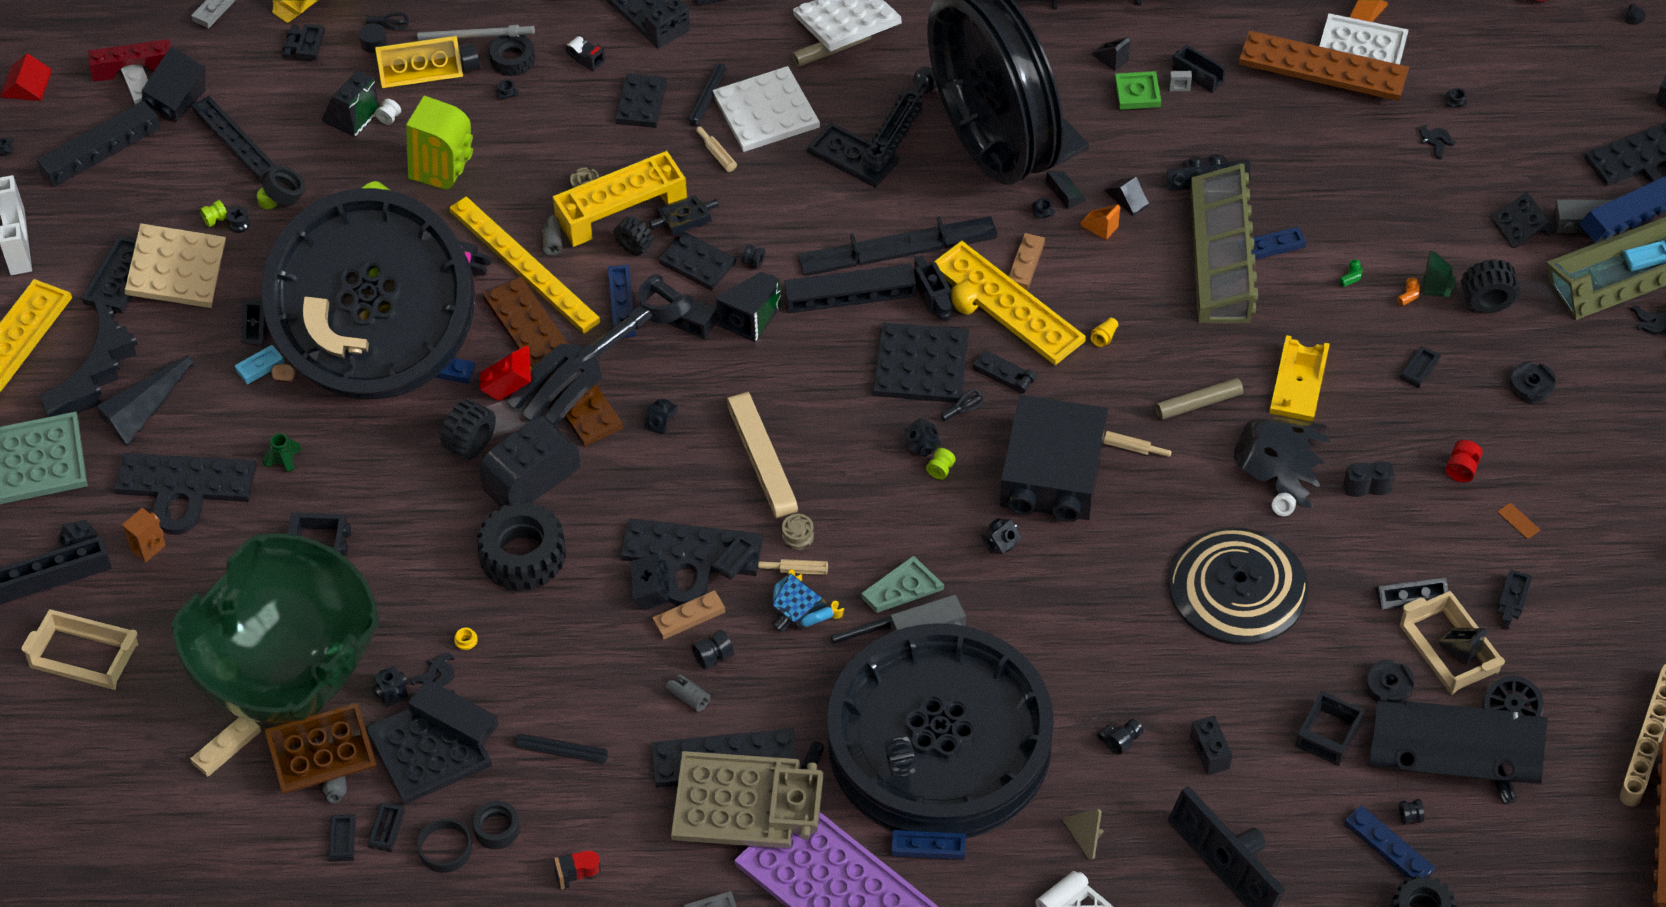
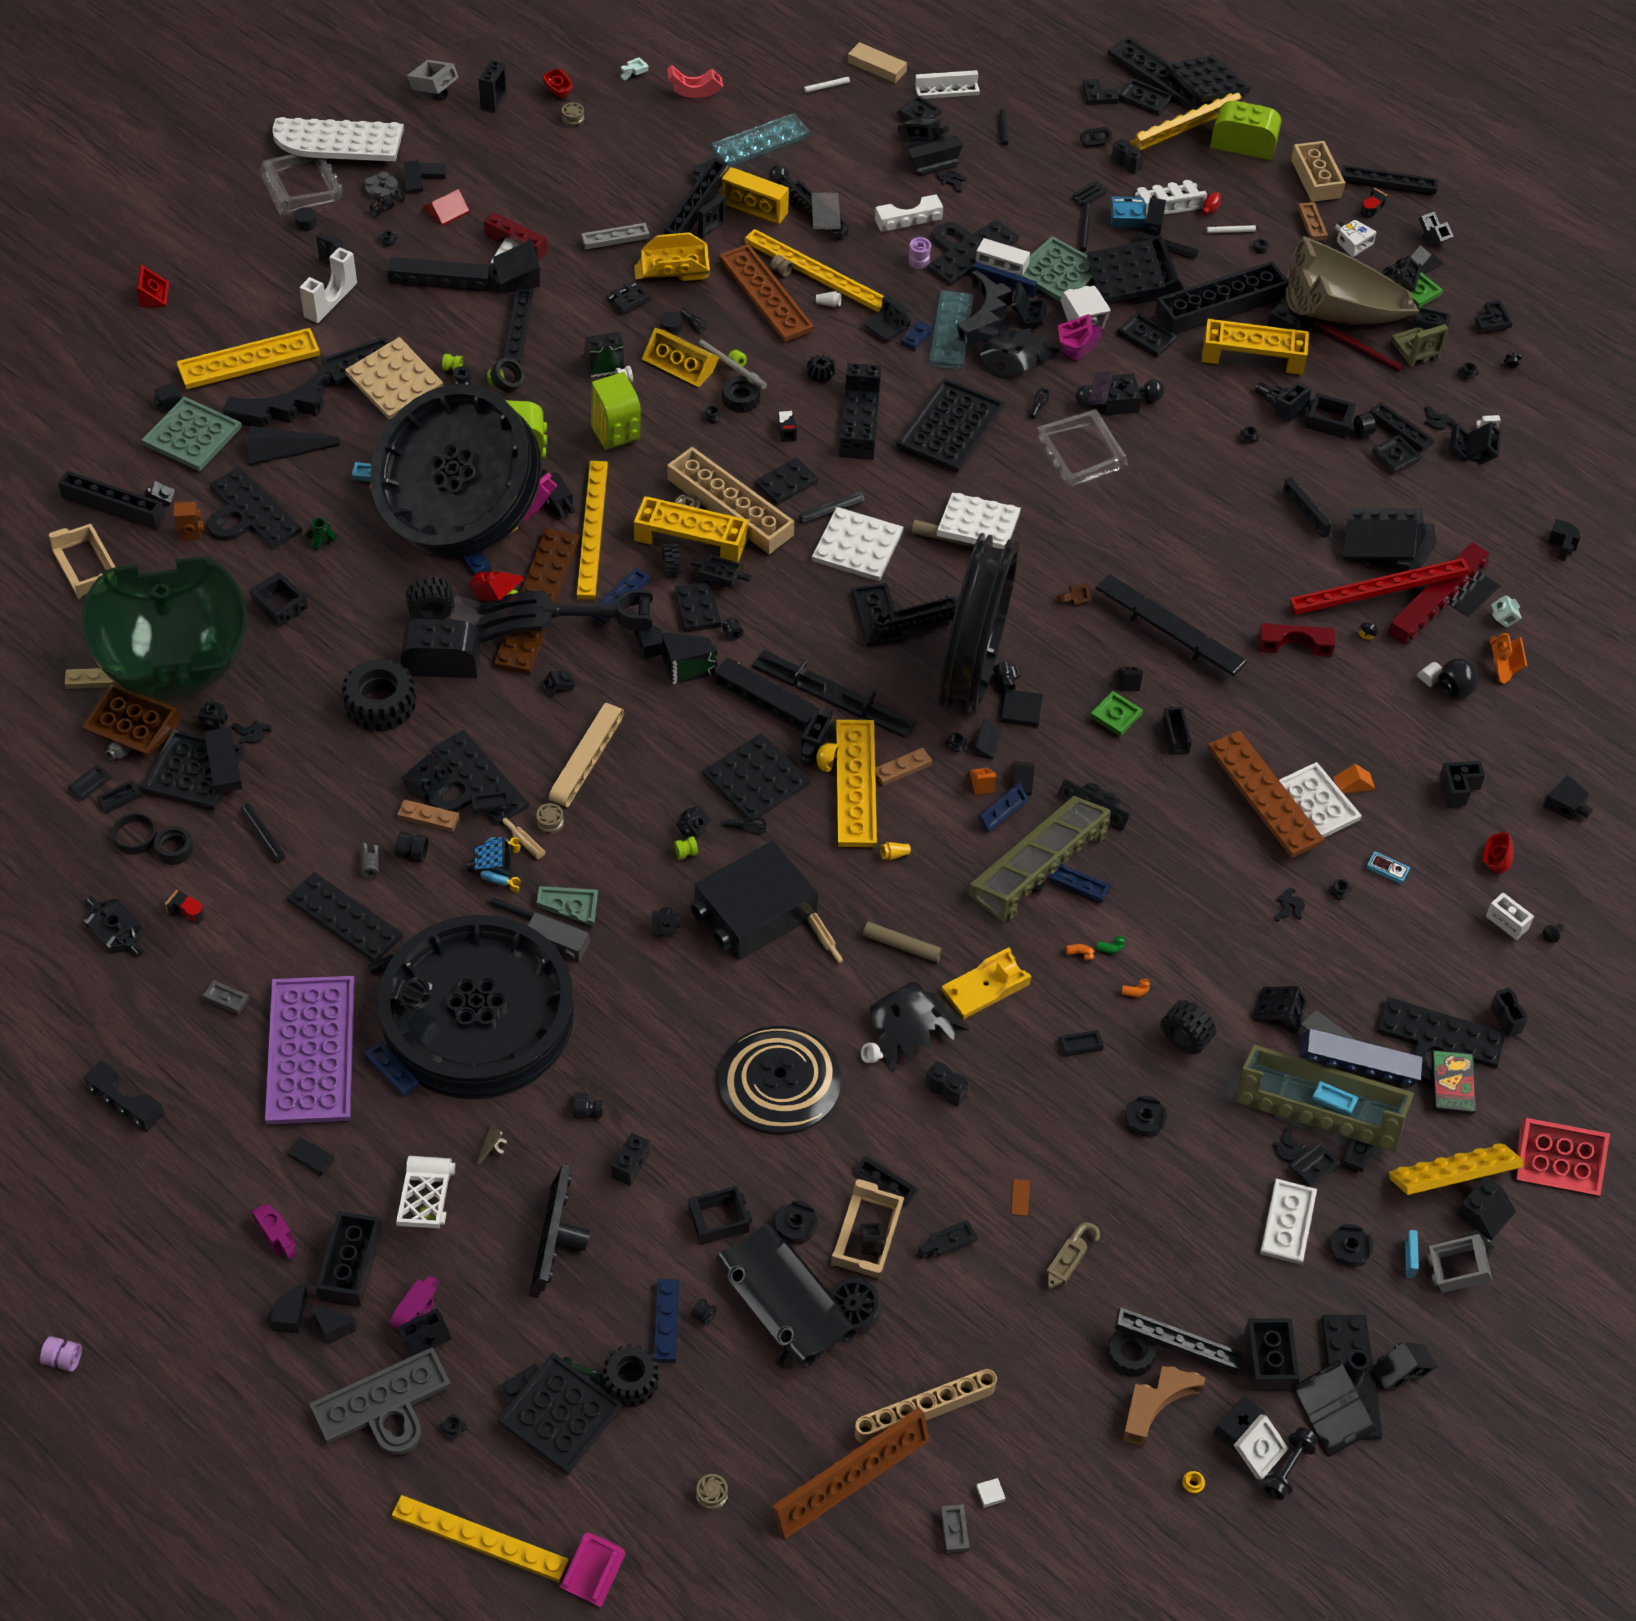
camera: 40 degrees right, 0 degrees up
(316, 321) = (398, 472): tan arch -> none
(465, 633) = (285, 722): yellow plate -> none
(469, 23) = (738, 357): none -> lime piece
(469, 57) = (711, 376): black piece -> none
(551, 236) = (625, 525): dark grey hinge -> none
(616, 147) = (727, 495): none -> tan brick
(718, 151) = (793, 547): tan axle -> none
(745, 800) = (316, 948): dark tan plate -> none
(1004, 371) = (800, 823): black plate -> none
(1145, 231) = (1002, 807): none -> dark blue plate
(1180, 80) = (1152, 729): light grey plate -> none
(1340, 292) = (1080, 949): none -> orange arm
(1438, 276) = (1164, 991): clear green slope -> none
(1464, 461) = (1027, 1125): red wheel -> none
(1469, 56) = (1388, 868): none -> tile
(1597, 23) = (1509, 916): none -> white brick
(1609, 532) = (1069, 1256): none -> dark tan plate

